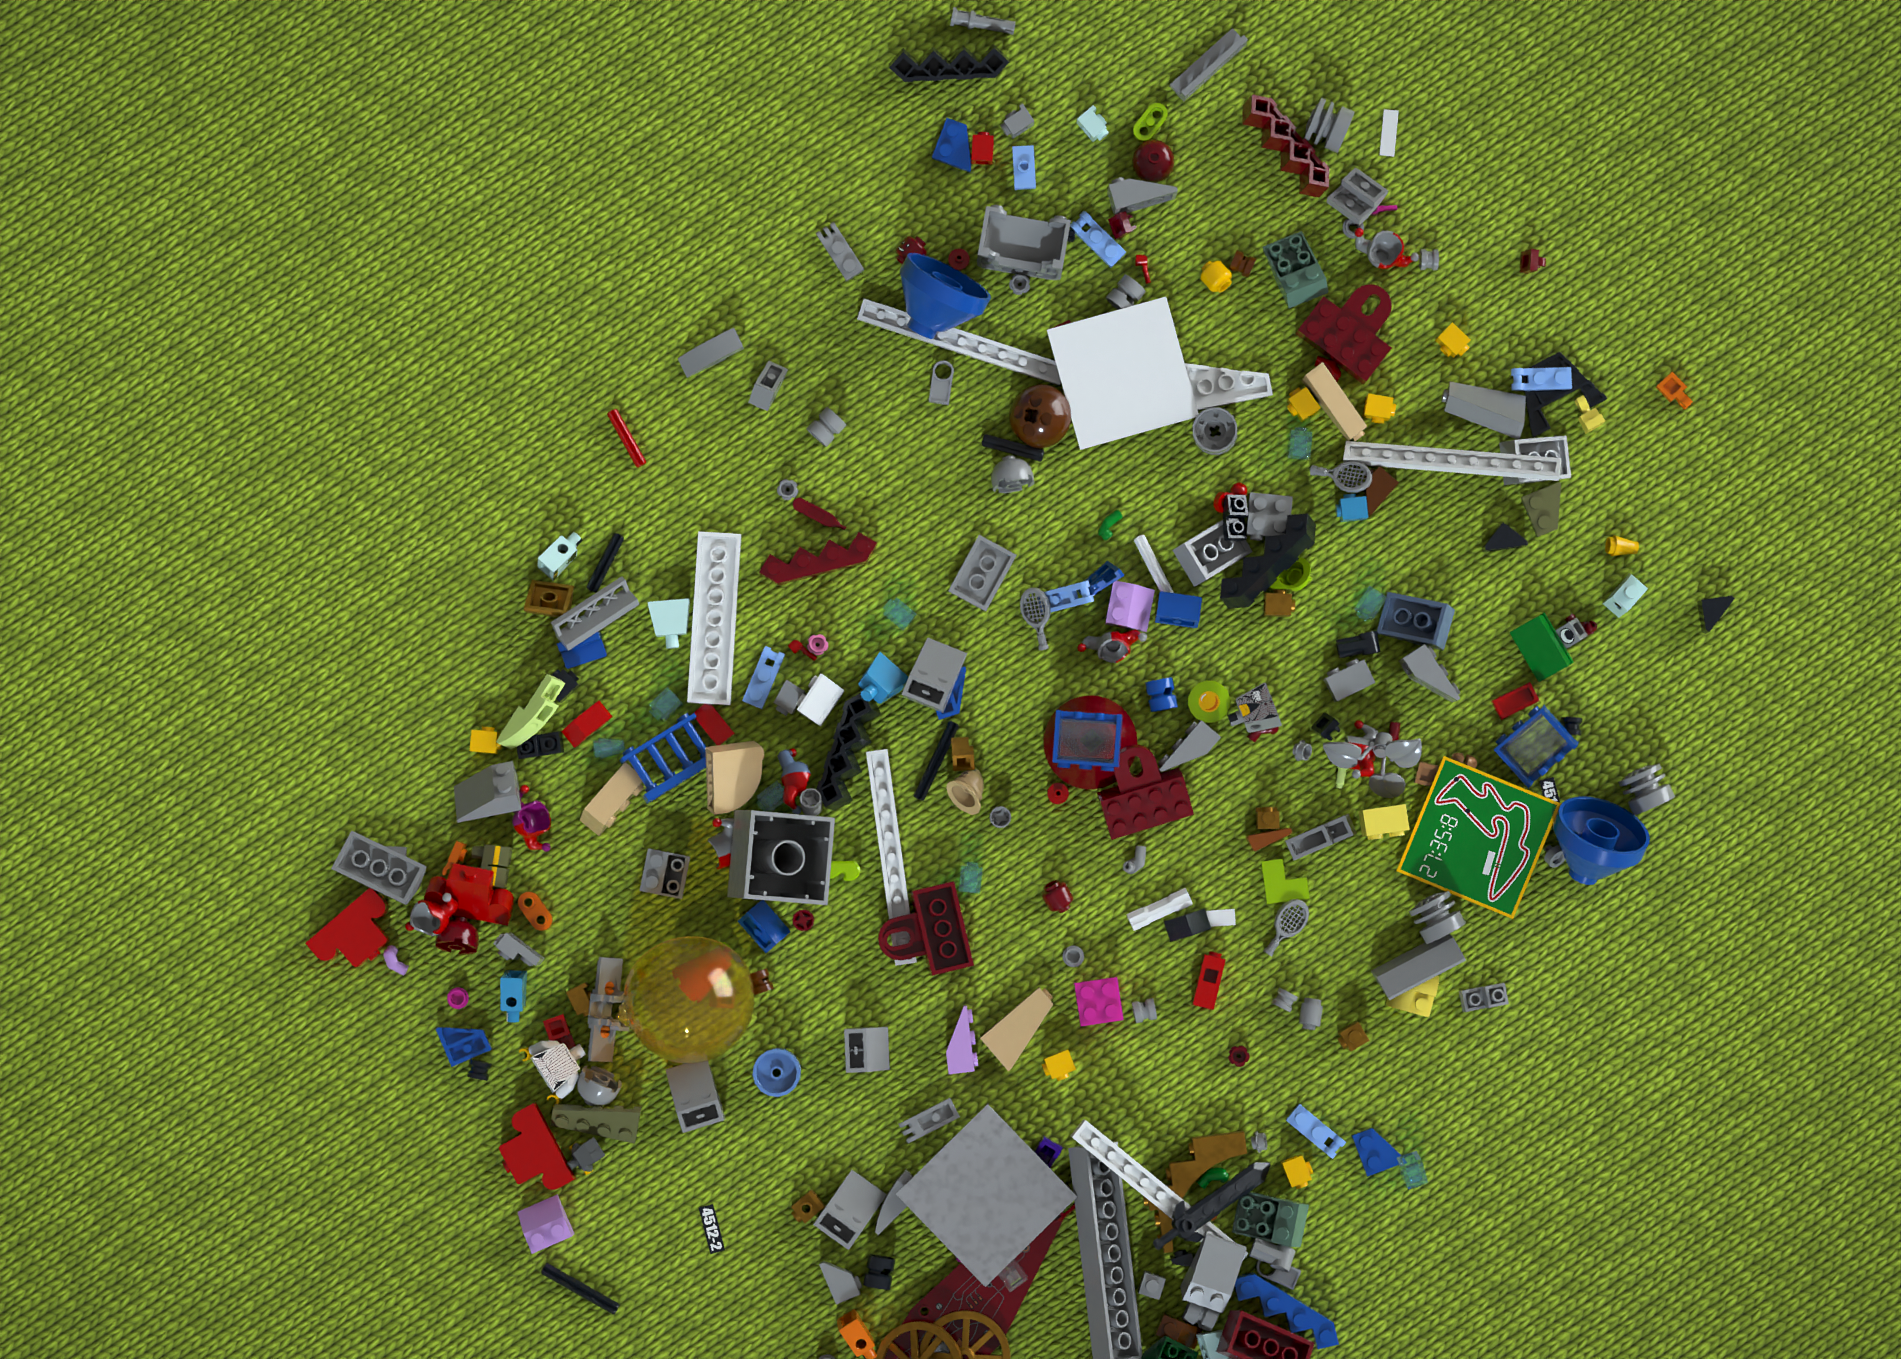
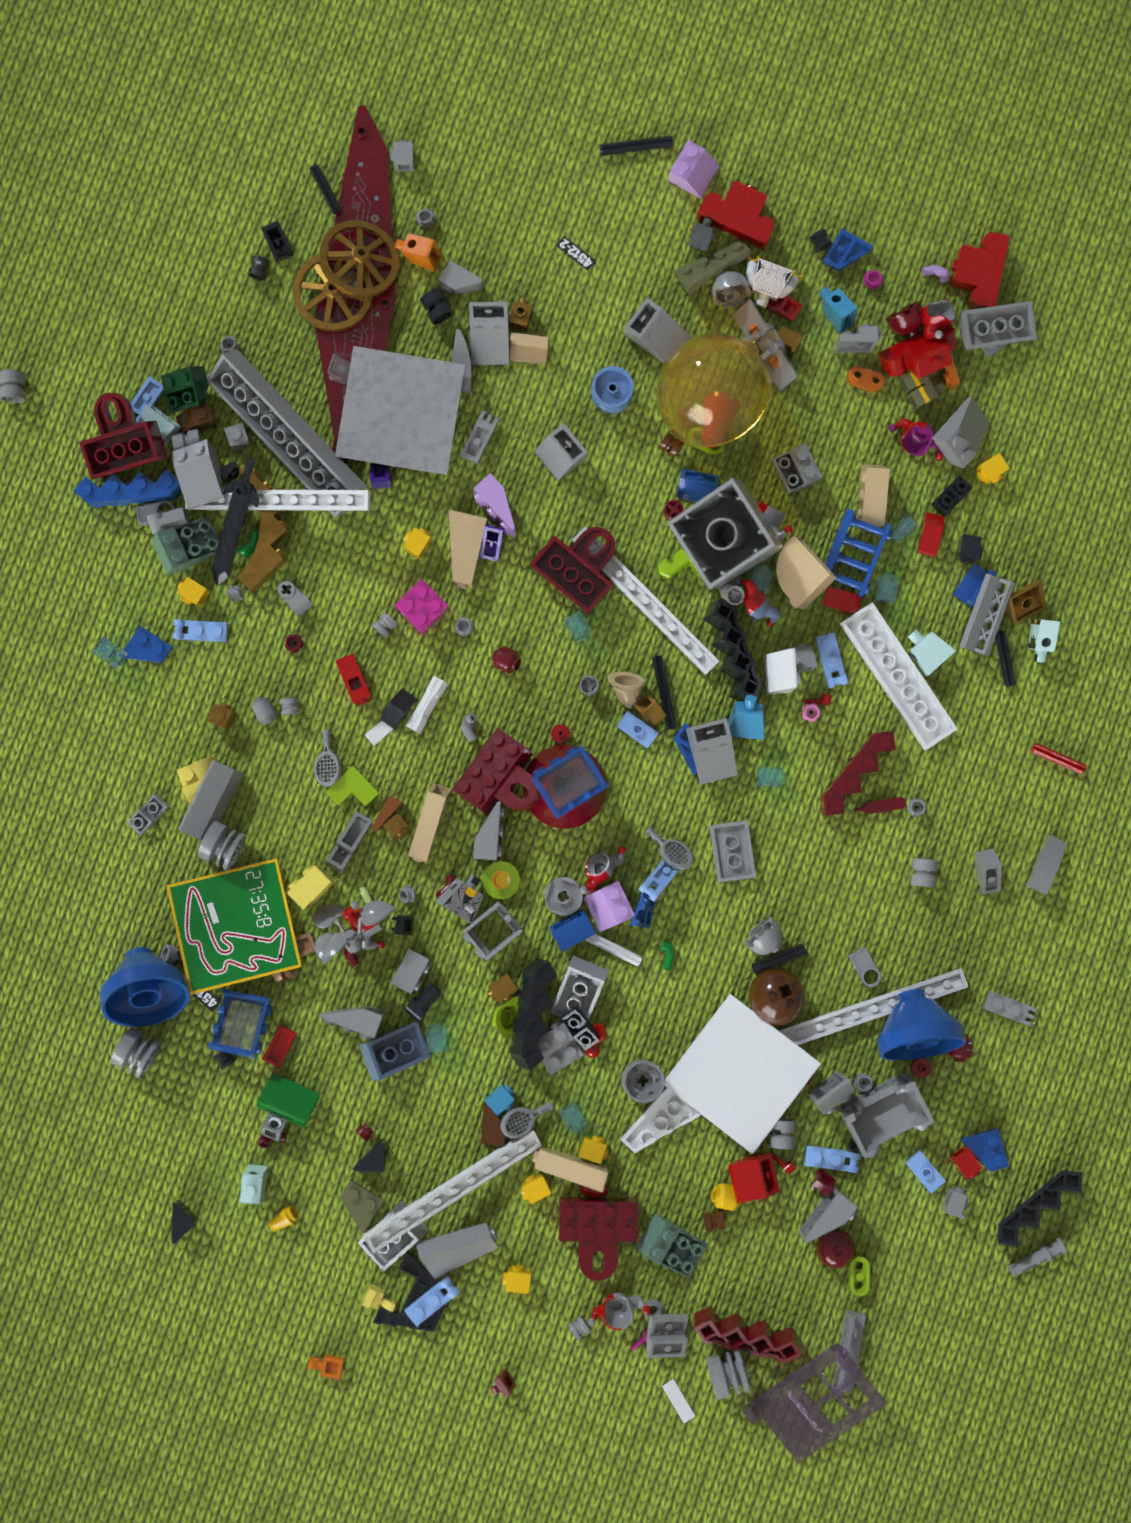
camera: 135 degrees right, 0 degrees up
(529, 720) = (974, 507): yellowish green slope -> none
(823, 1169) = (528, 348): none -> tan panel
(985, 745) = (637, 729): none -> light blue plate
(992, 1012) = (491, 542): none -> slope
(1056, 296) = (831, 1092): none -> light grey slope
(1092, 124) = (900, 1242): light aqua brick -> none
(1161, 694) = (538, 859): blue wheel -> none
(1176, 646) = (558, 886): none -> light grey plate
(1179, 275) = (754, 1177): none -> red slope
(1208, 1091) = (296, 600): none -> light grey piece
(1235, 800) = (429, 822): none -> tan slope
(1272, 652) = (481, 949): none -> light grey window
(1295, 43) = (798, 1418): none -> door
(1494, 569) = (364, 1131): none -> dark red plate

